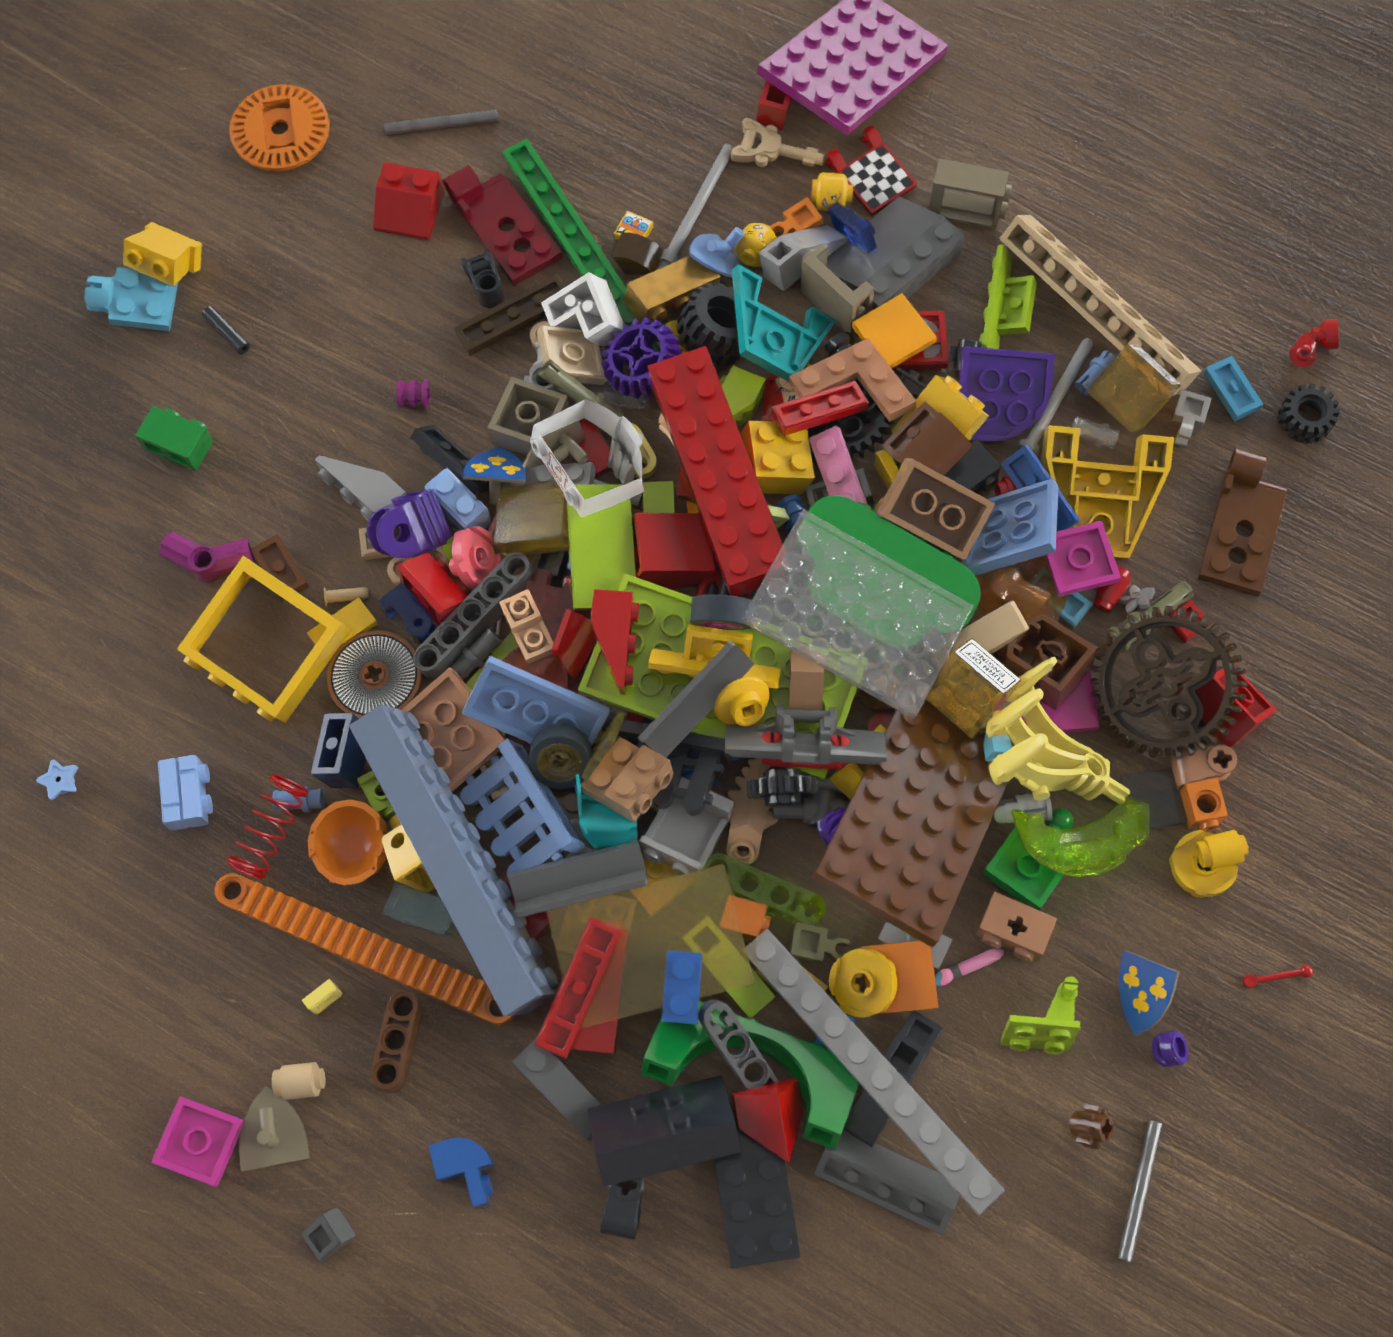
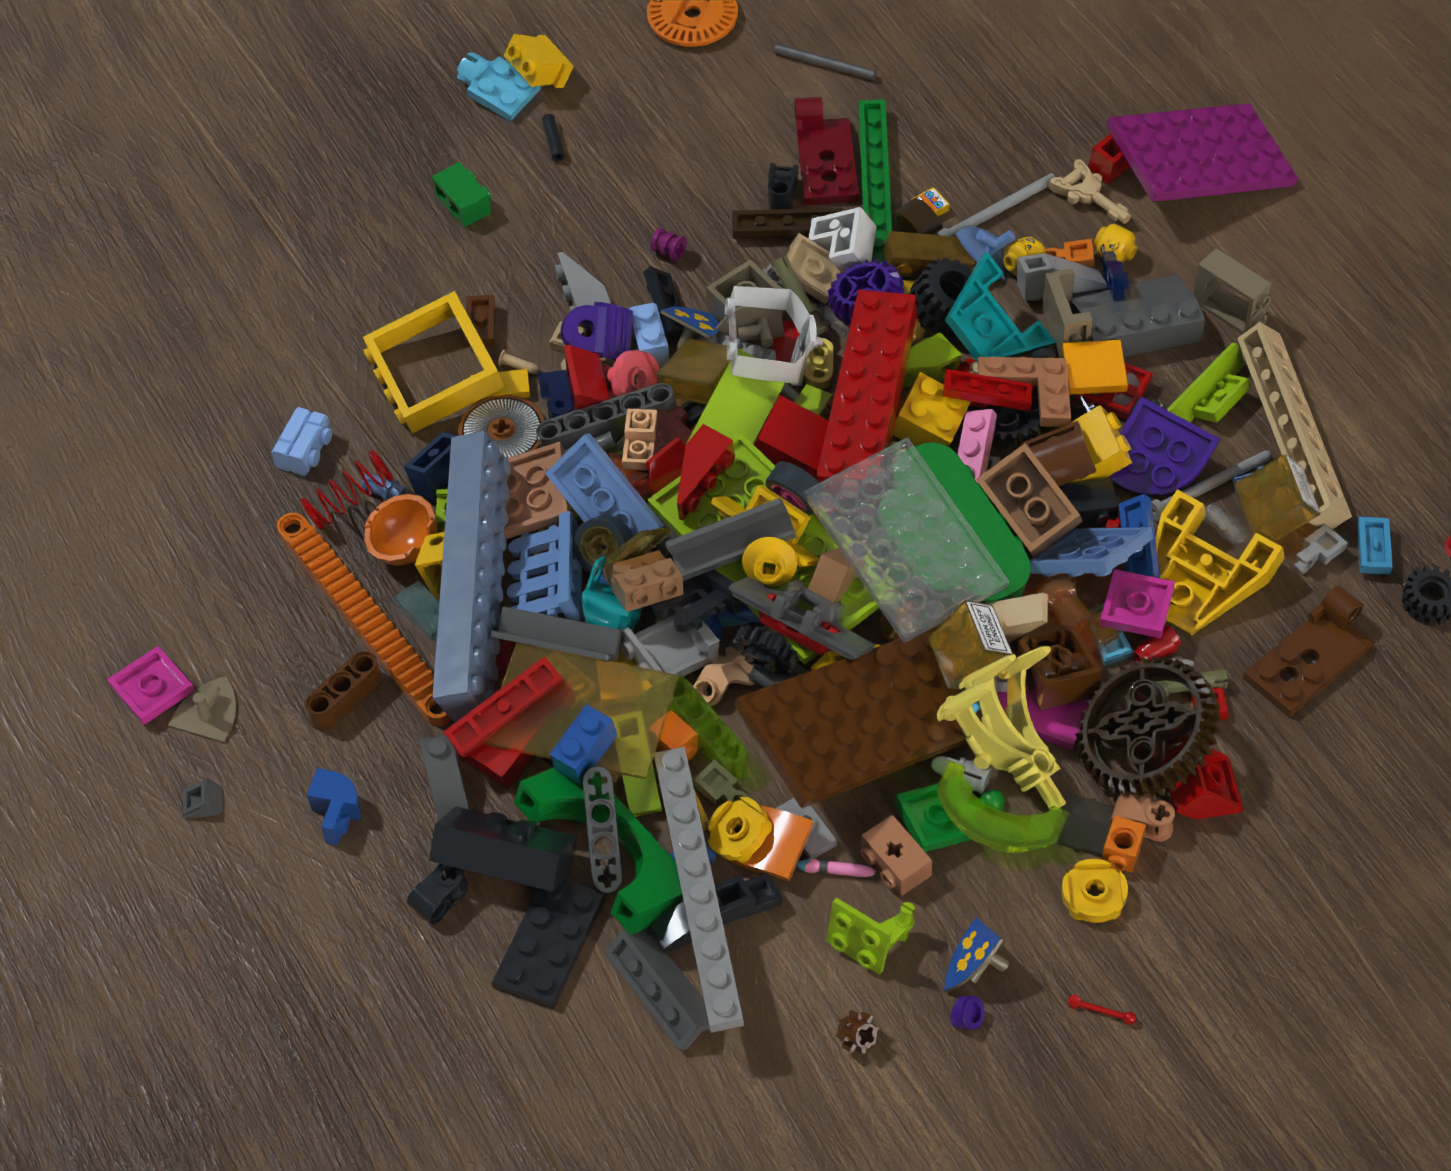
camera: 30 degrees right, 15 degrees down
(67, 779) = (219, 397): light blue plate -> none
(191, 556) = (424, 285): magenta piece -> none
(298, 1081) = (251, 681): tan brick -> none
(322, 997) = (308, 631): light yellow tile -> none
(407, 201) = (757, 105): red slope -> none
(770, 1115) = (596, 882): red slope -> none
(875, 175) = (1165, 250): flag -> none
(1139, 1191) = (867, 1106): flat silver bar -> none
(1221, 849) = (1111, 879): yellow brick -> none

